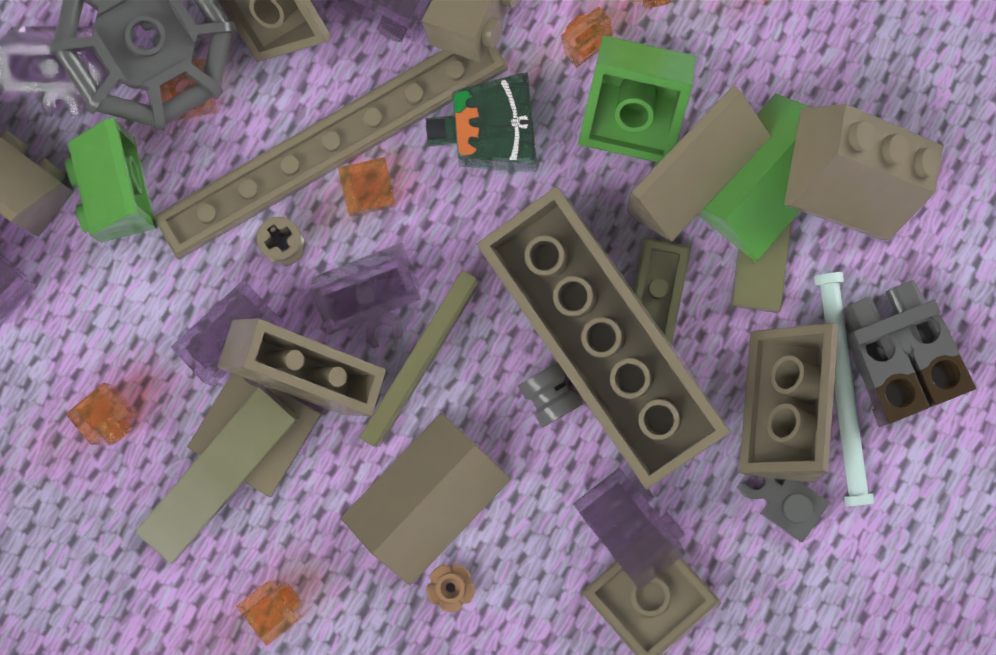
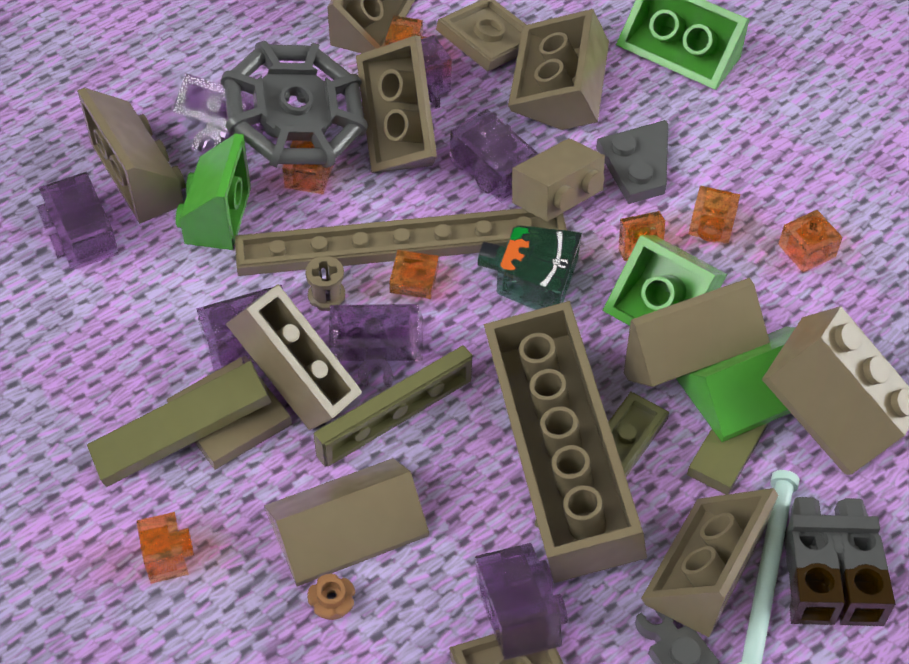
camera: 25 degrees right, 30 degrees down
(103, 415) = (113, 348): clear orange plate -> none
(550, 394) = (495, 474): dark grey wheel -> none

